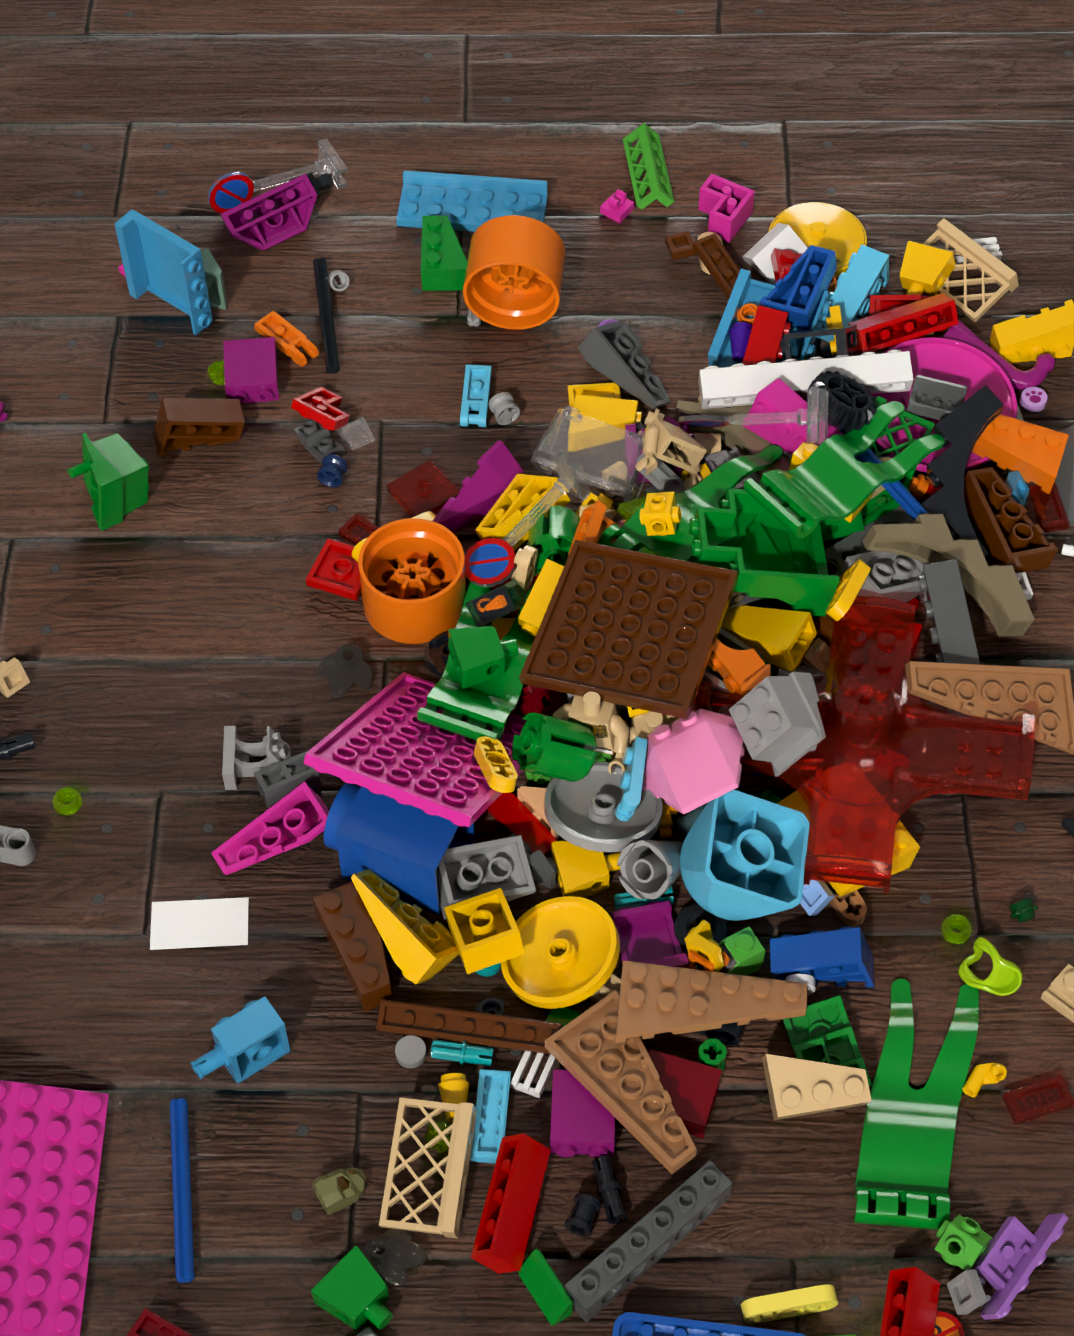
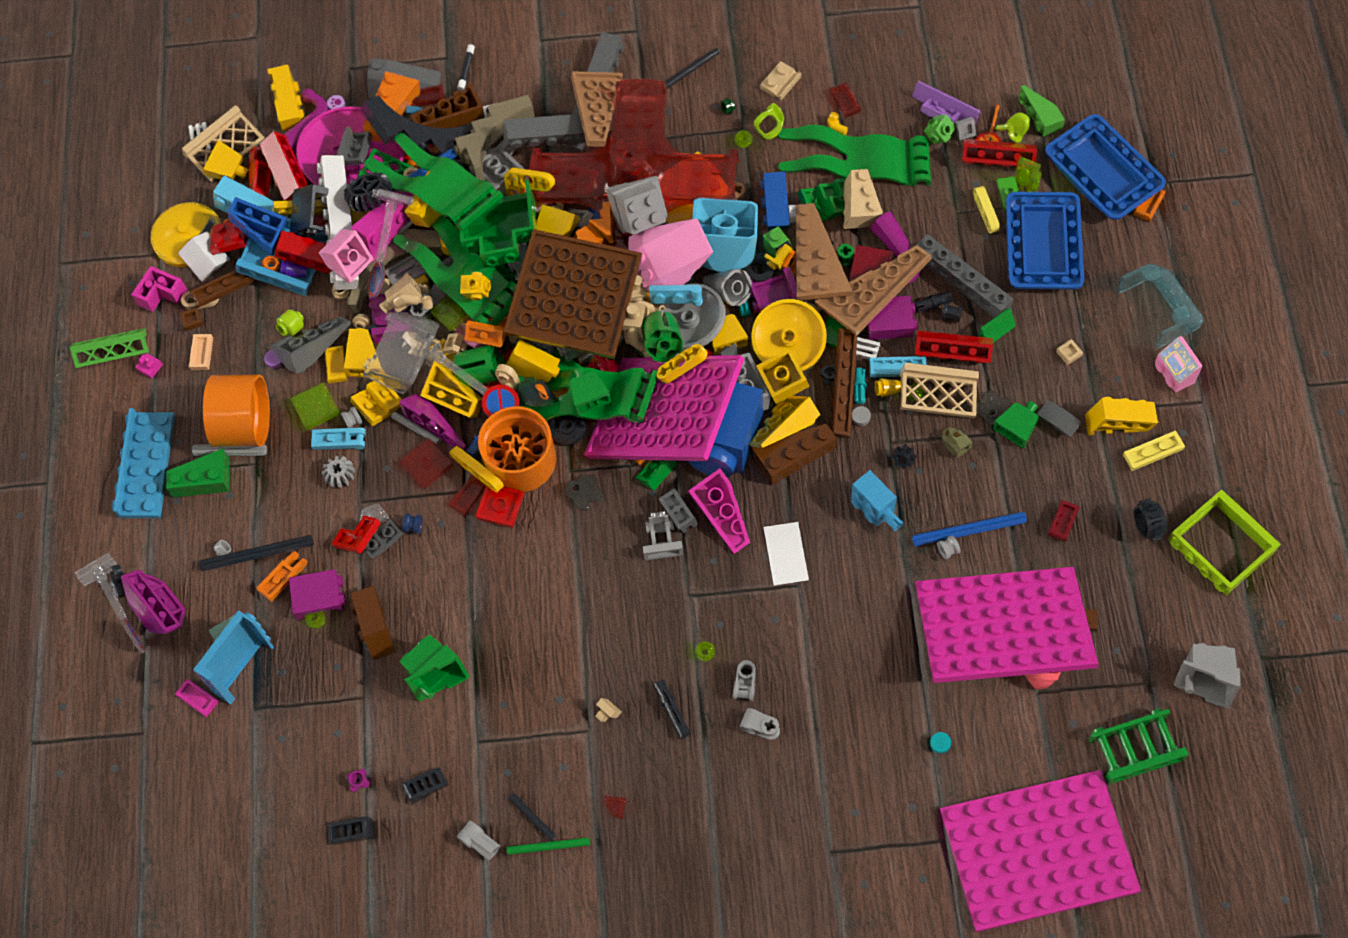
camera: 90 degrees left, 10 degrees up
(152, 1149) = (948, 547): none -> light grey wheel
(321, 1101) = (899, 457): none -> black gear
(424, 393) = (337, 465): none -> light grey gear
(522, 435) = (376, 402): none -> yellow slope
(528, 371) = (315, 406): none -> clear neon green tile
(631, 257) = (201, 352): none -> light nougat tile
(661, 343) = (289, 323): none -> lime head
(735, 376) = (346, 255): none -> bright pink slope
(740, 1137) = (891, 234): none -> magenta animal

